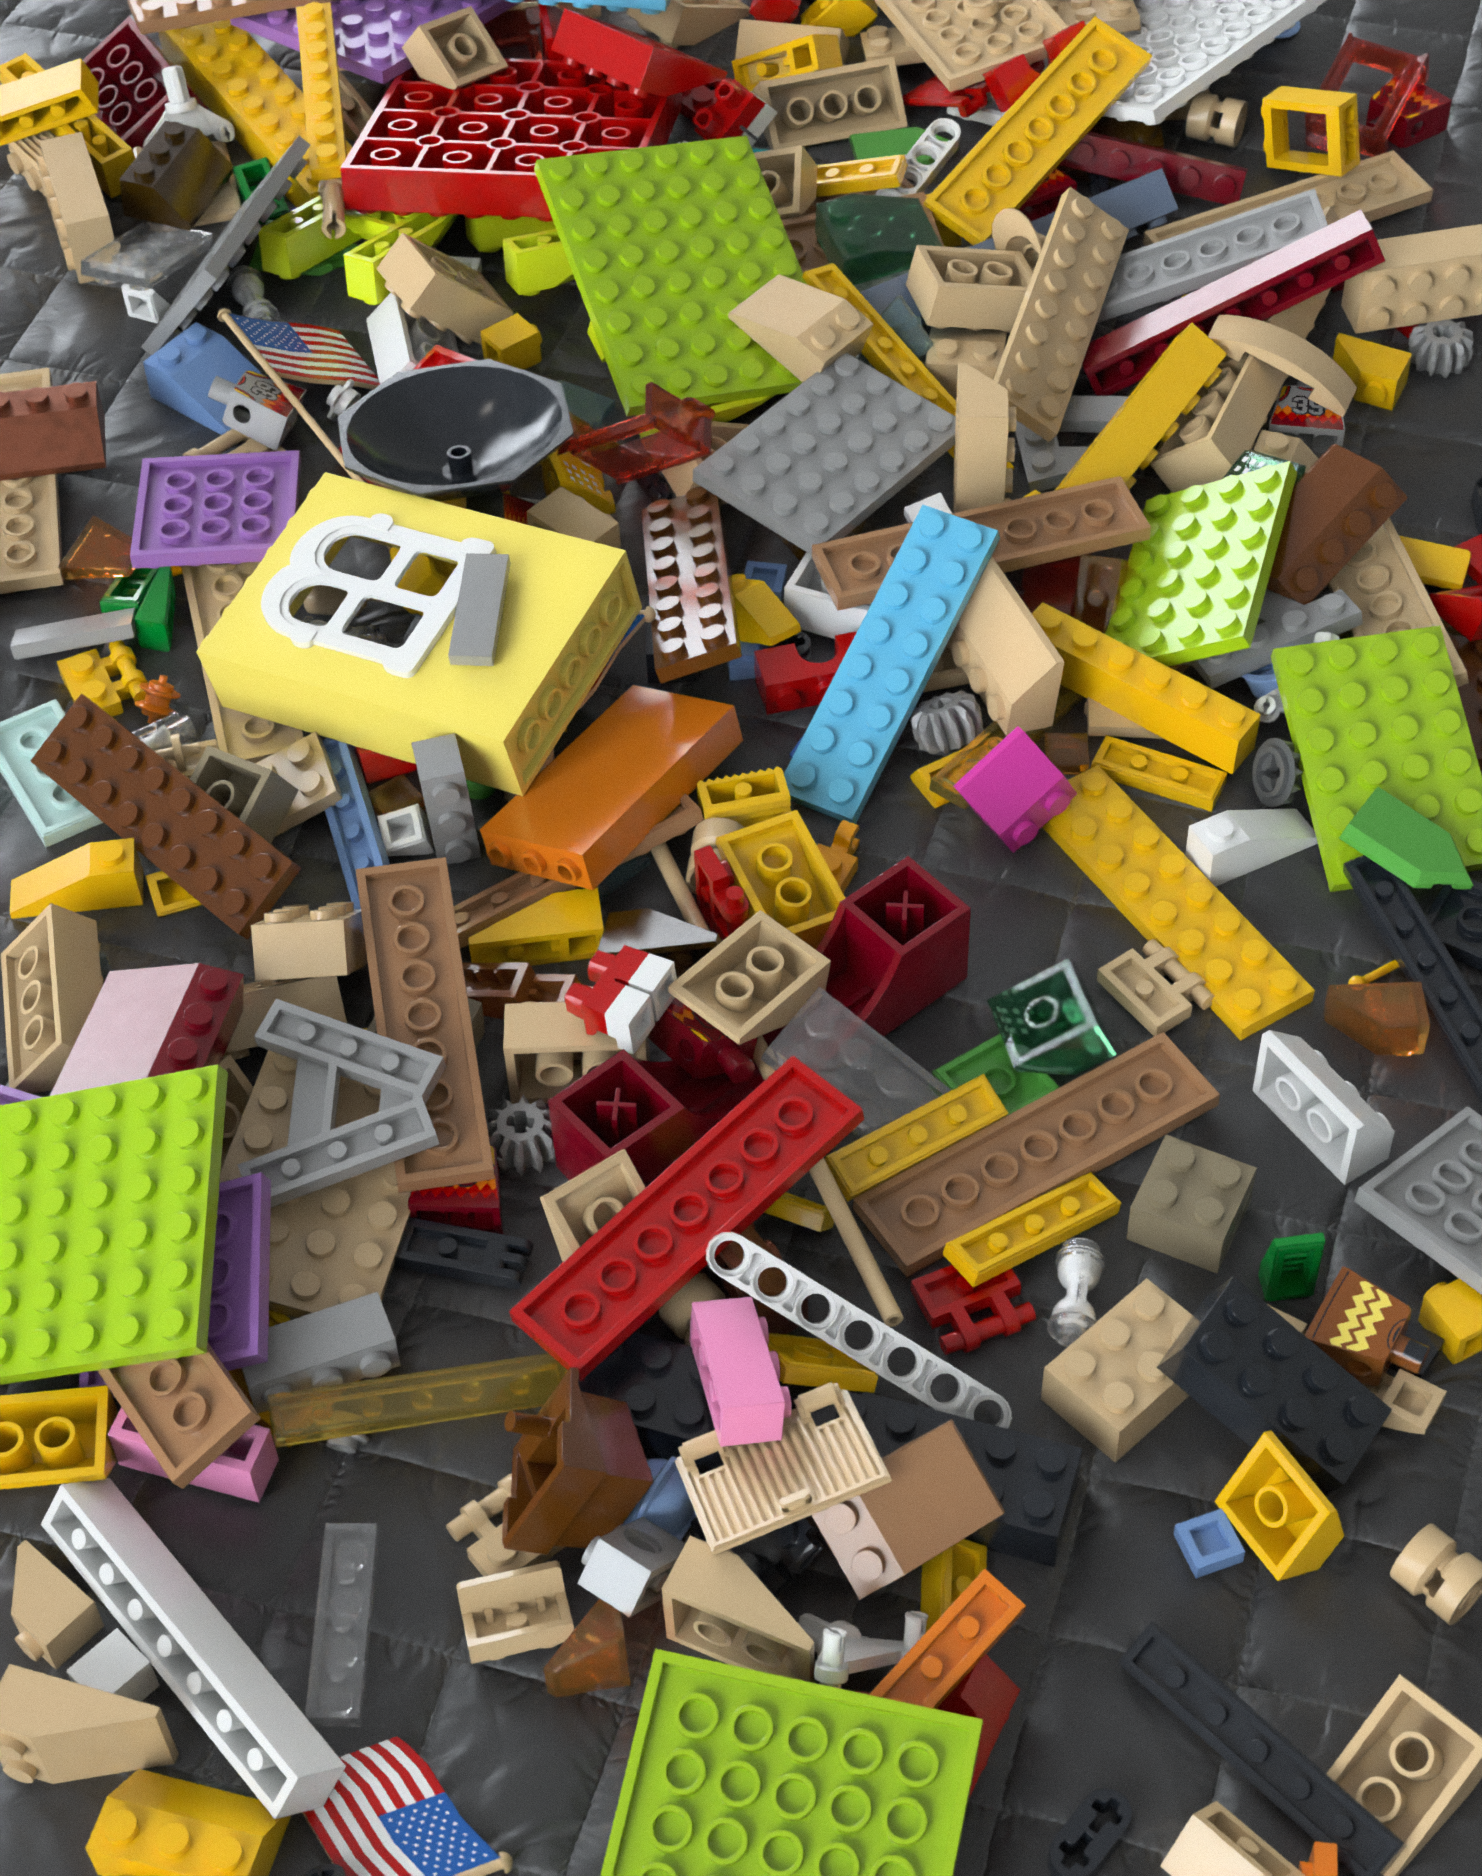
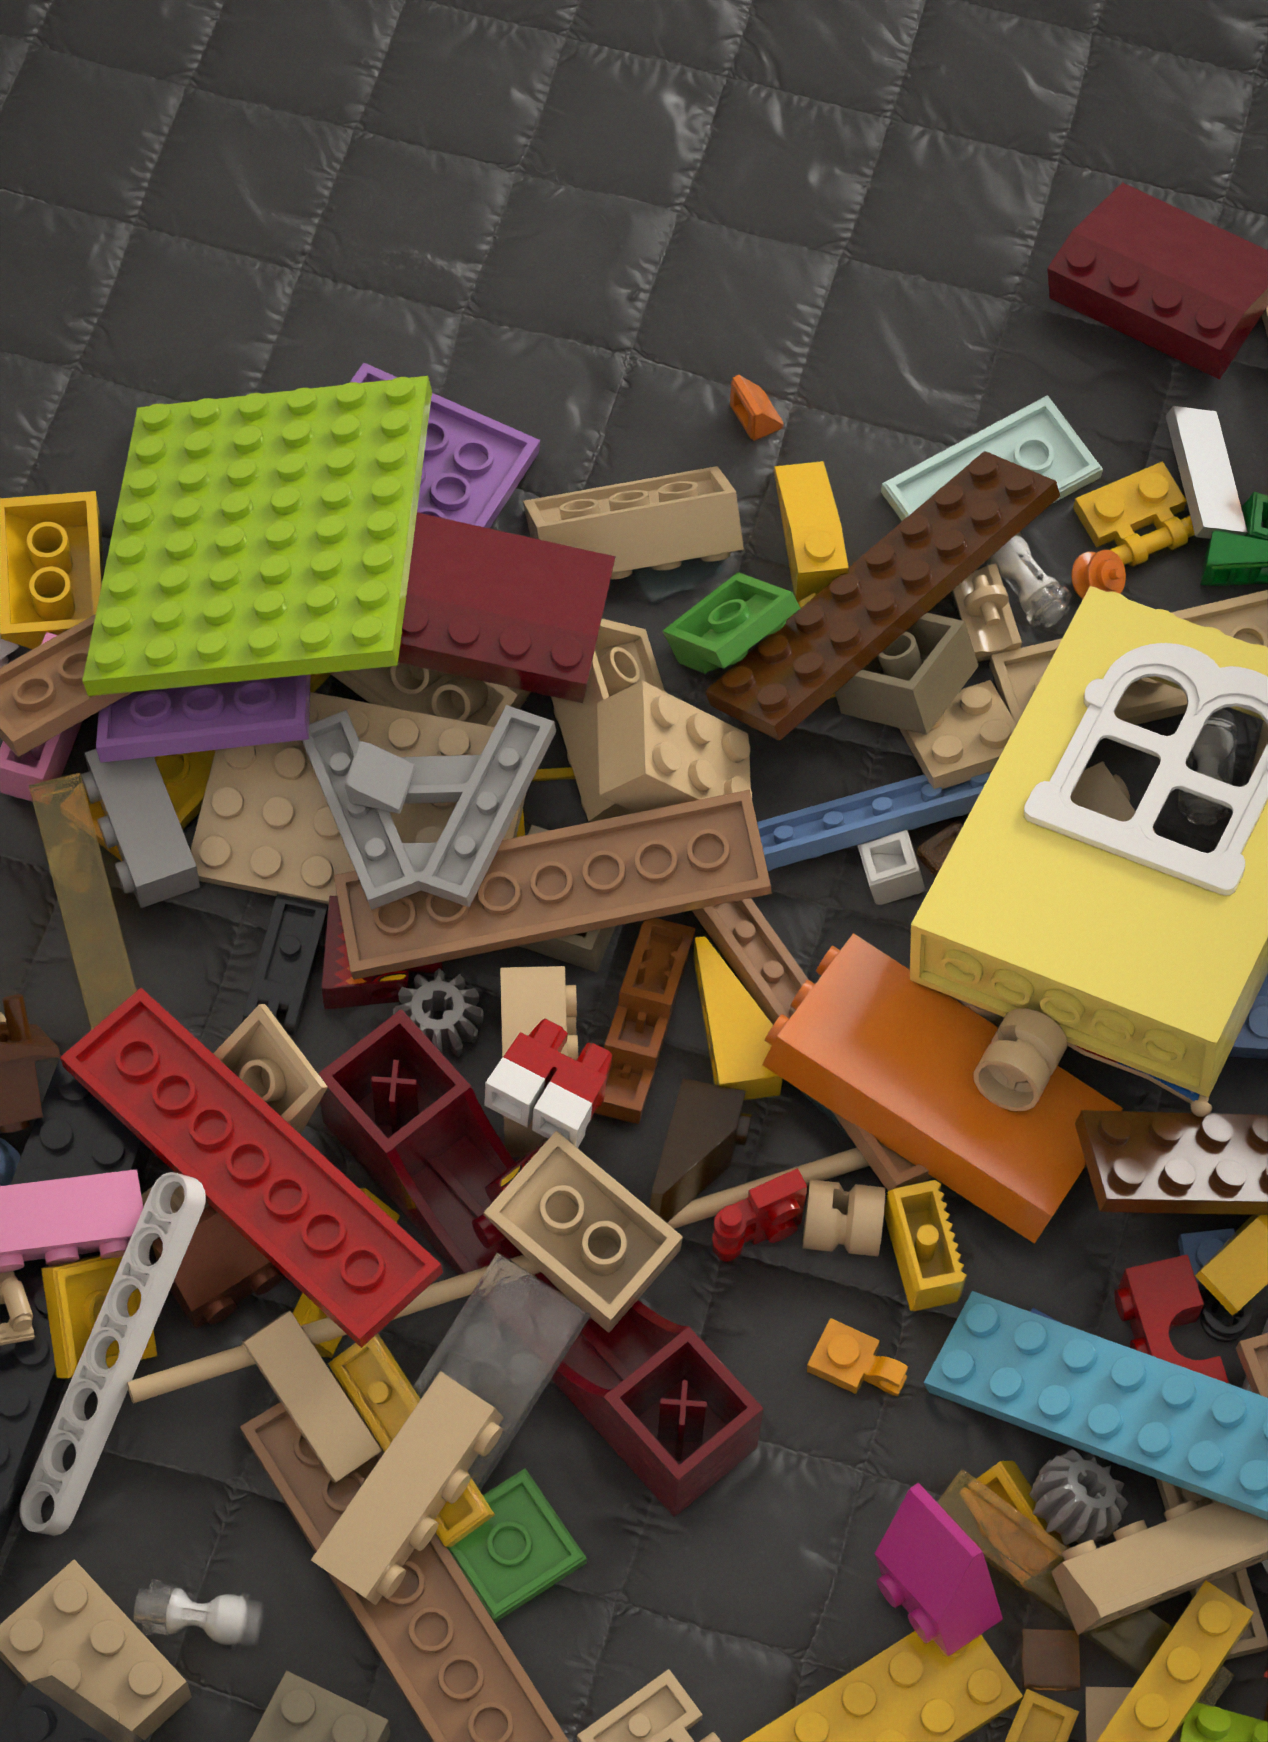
camera: 85 degrees right, 15 degrees up
(173, 915) = (729, 622): none -> bright green plate
(318, 1125) = (378, 778): none -> light grey slope
(446, 798) = (891, 888): light grey brick -> none
(479, 609) = (1114, 879): light grey tile -> none
(604, 716) = (1020, 1059): none -> tan wheel
(783, 875) = (779, 1287): yellow slope -> none
(888, 1192) = (311, 1396): none -> tan tile
(949, 1297) = (214, 1493): red plate -> none
(971, 1117) = (409, 1488): none -> tan brick
(1031, 1229) = (285, 1568): yellow tile -> none
(1051, 1023) = (579, 1606): clear green slope -> none

